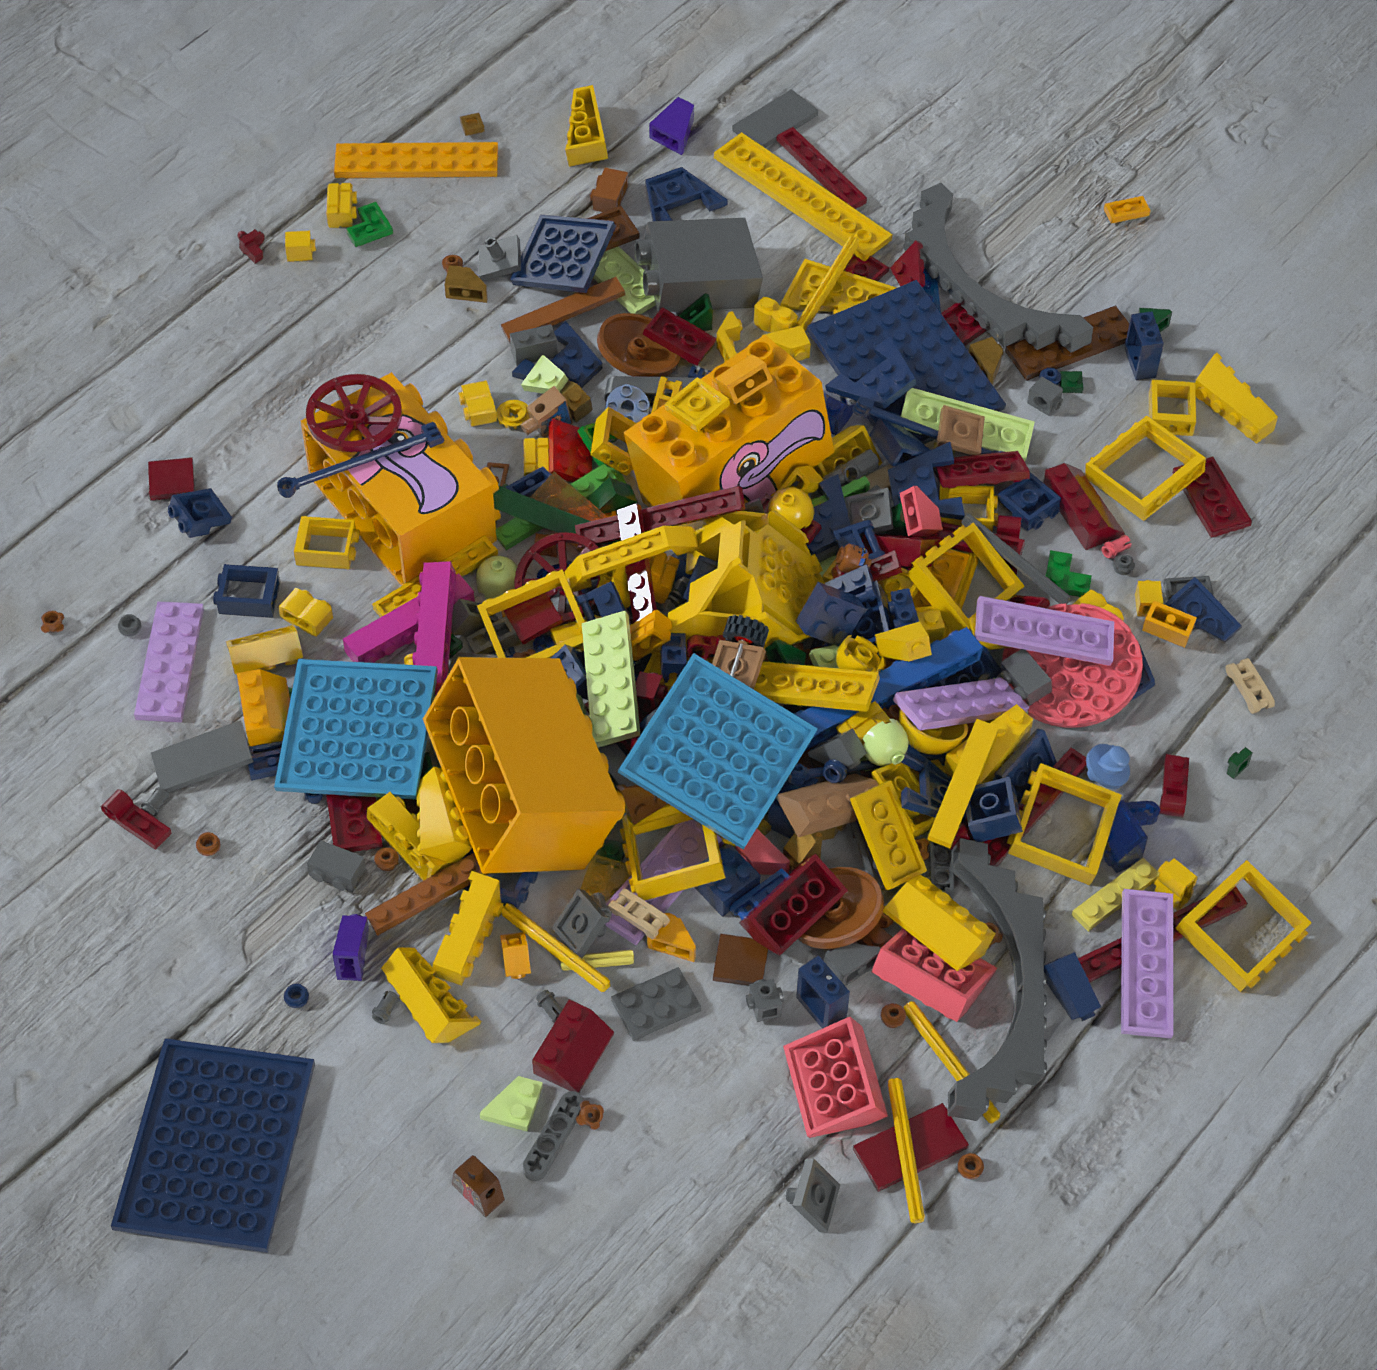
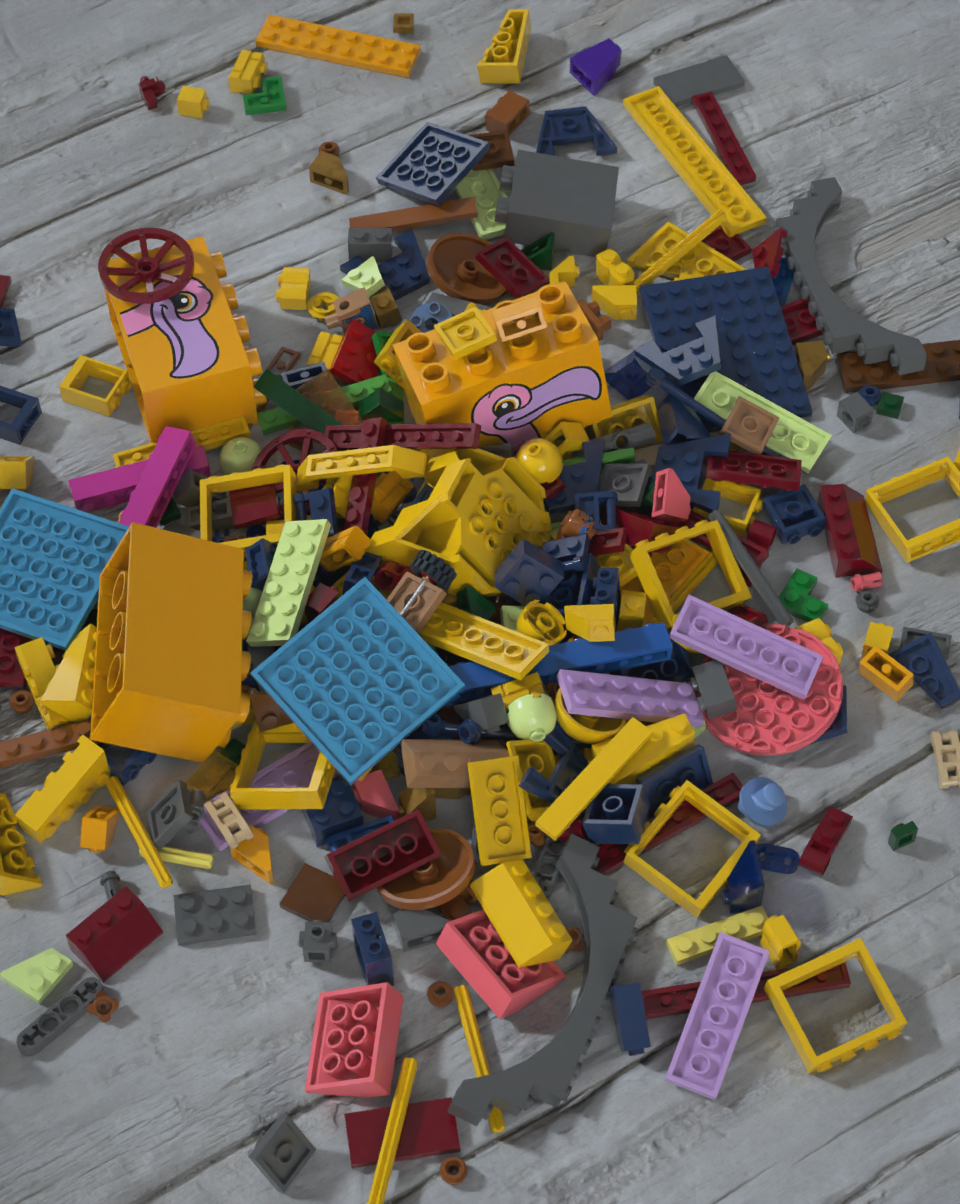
camera: 20 degrees right, 0 degrees up
(287, 486) = (213, 304): dark blue hinge -> none
(306, 612) = (49, 446): yellow brick -> none
(499, 257) = (374, 154): tile -> none

